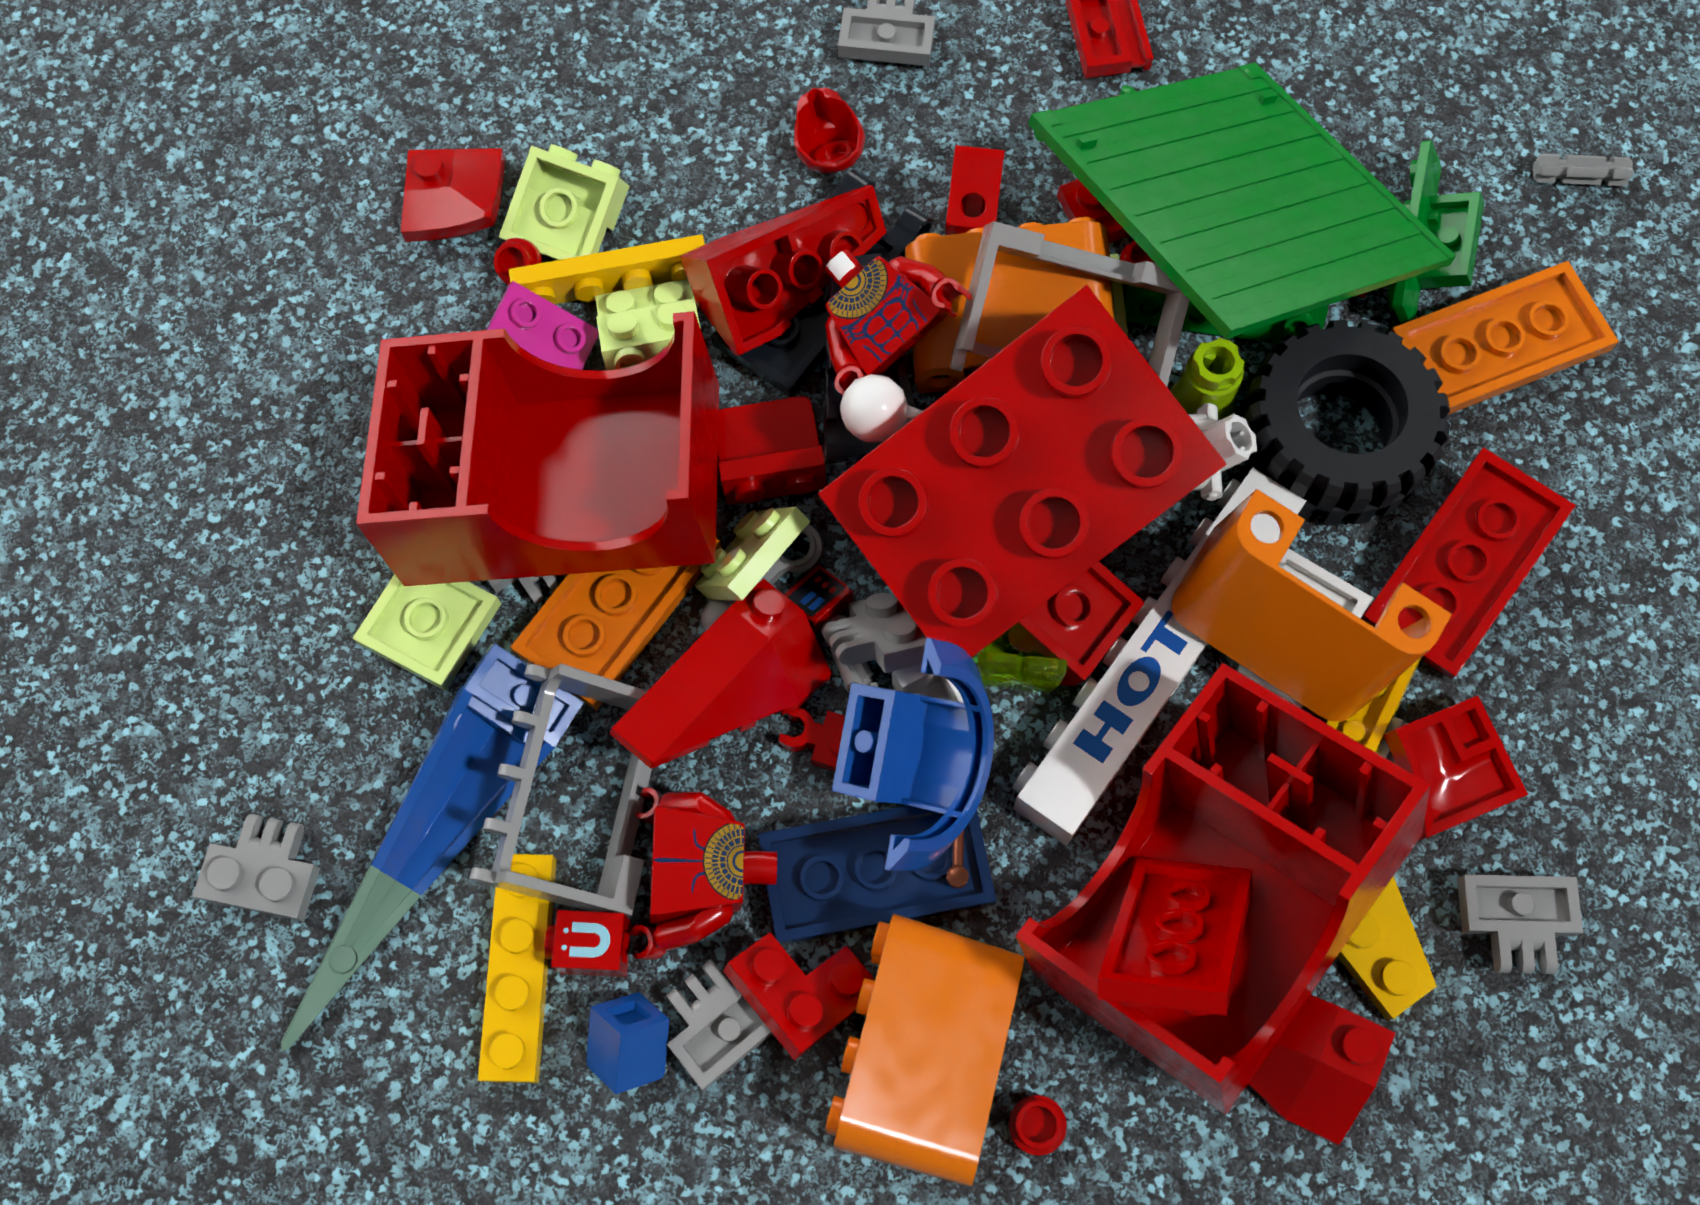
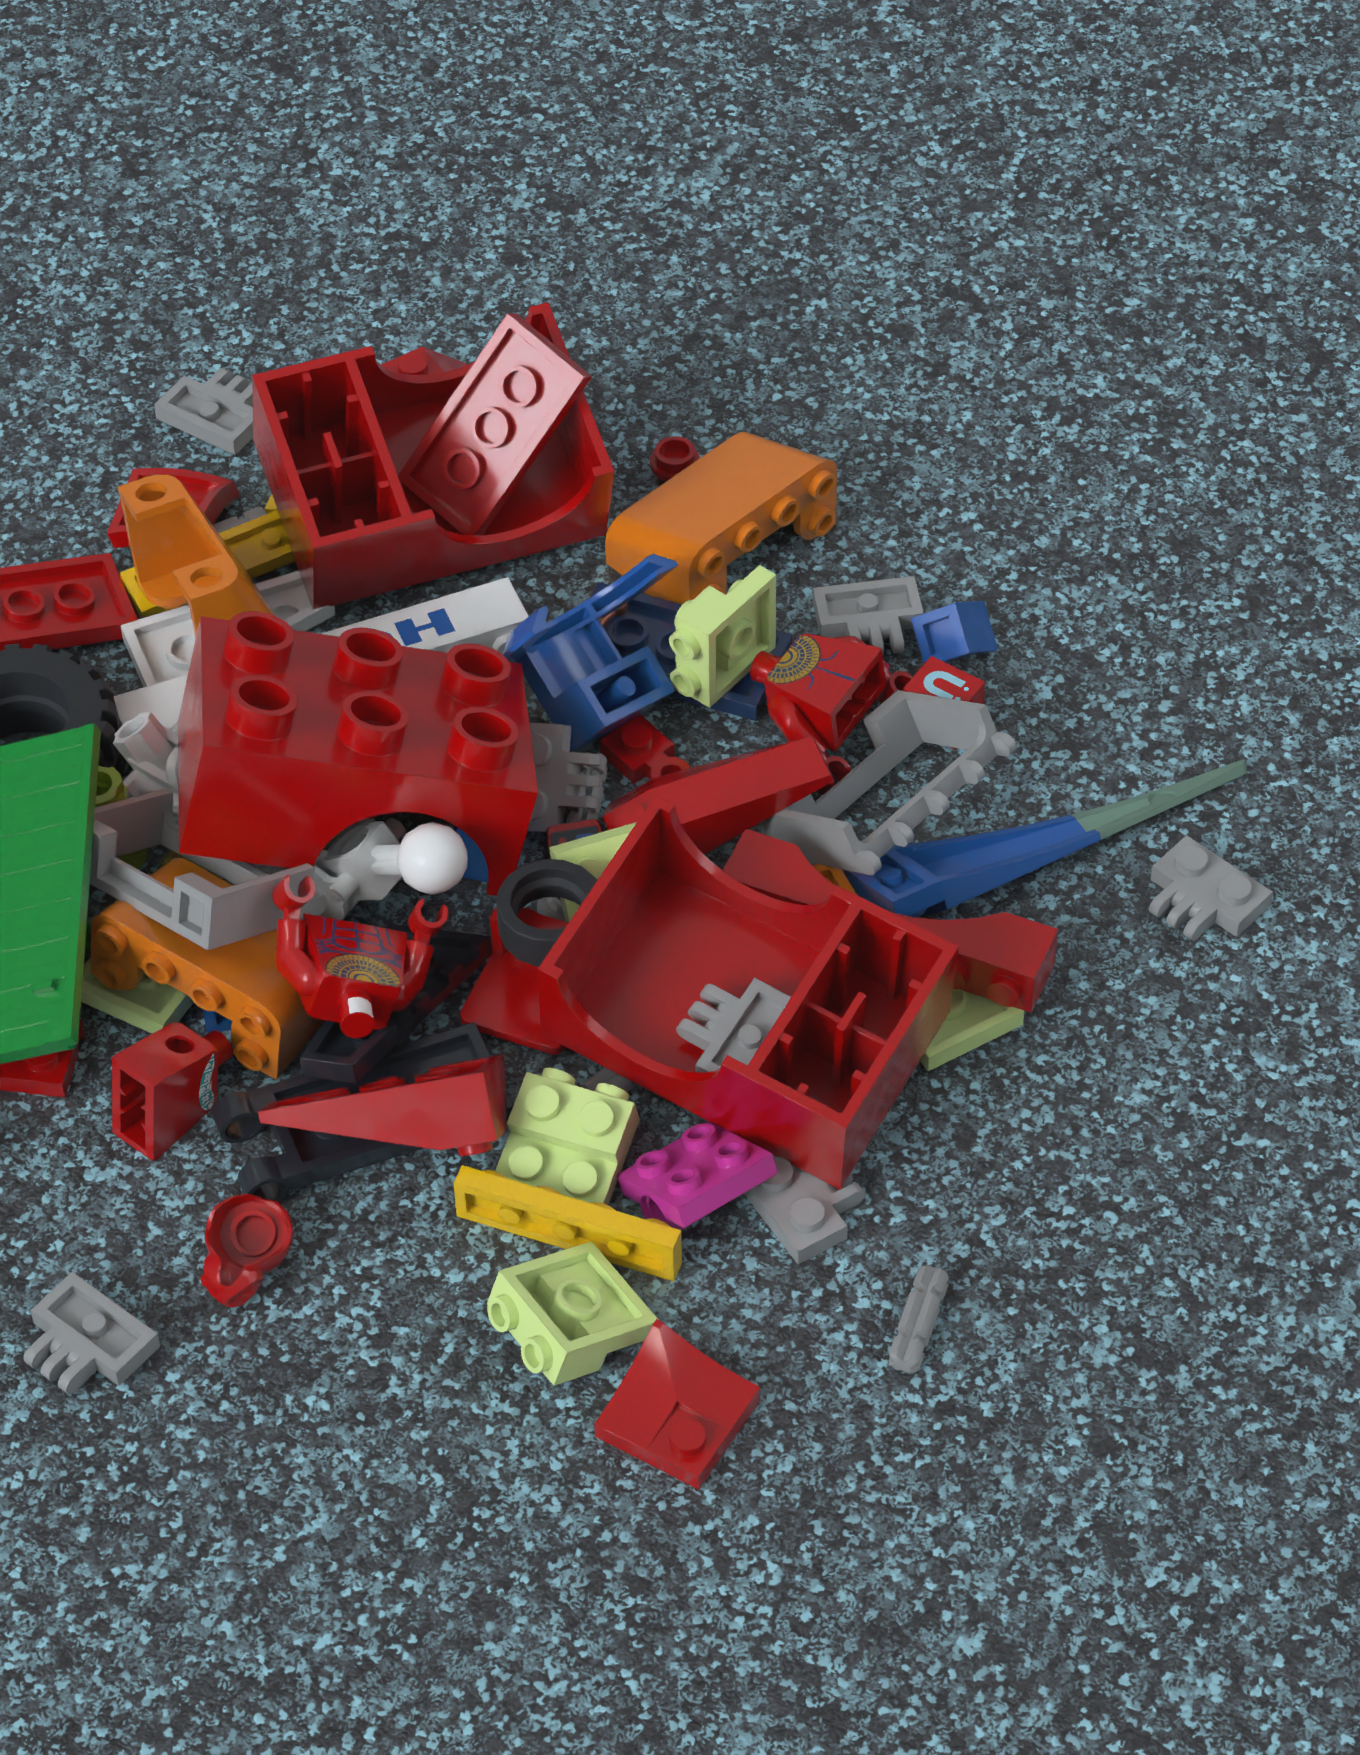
camera: 150 degrees left, 20 degrees down
(315, 346) = (918, 1319): none -> light grey axle
(390, 651) = (997, 953): none -> red arch
(514, 254) = (657, 1286): red plate -> none
(517, 979) = (1027, 716): yellow plate -> none
(548, 441) = (735, 1025): none -> light grey hinge
(757, 418) = (531, 883): none -> black tyre
(797, 1005) = (808, 591): red plate -> none
(814, 834) = (722, 636): none -> yellowish green plate

